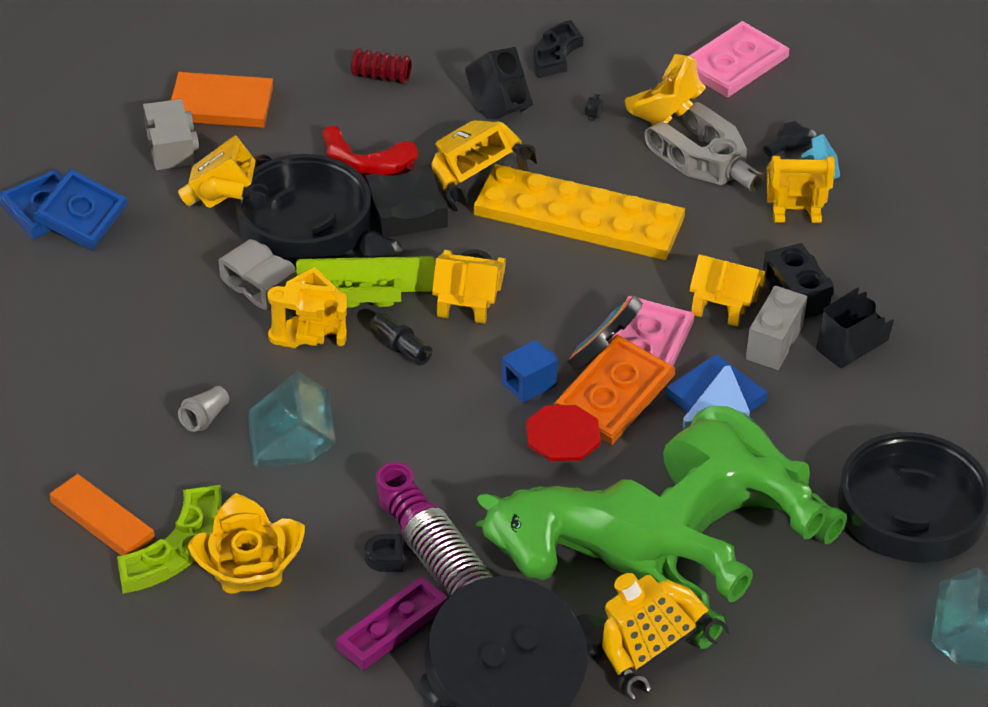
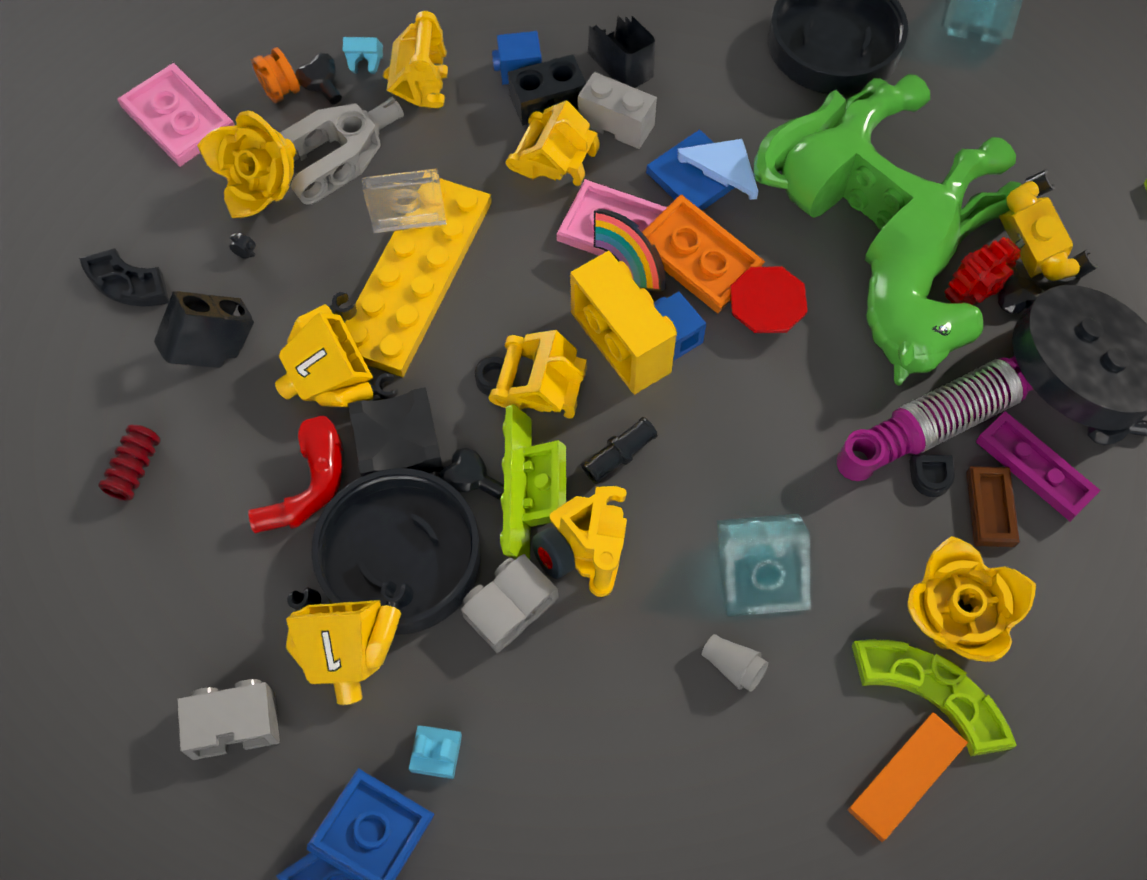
camera: 85 degrees left, 20 degrees up
(141, 243) = (435, 752): none -> medium azure tile
(224, 98) = (154, 659): orange tile -> none
(350, 593) = (992, 506): none -> reddish brown tile
(524, 311) = (622, 321): none -> yellow brick
(592, 572) = (983, 272): none -> red gear
(625, 171) = (404, 200): none -> clear tile
(778, 103) = (275, 75): none -> orange wheel
(836, 259) = (516, 51): none -> blue brick

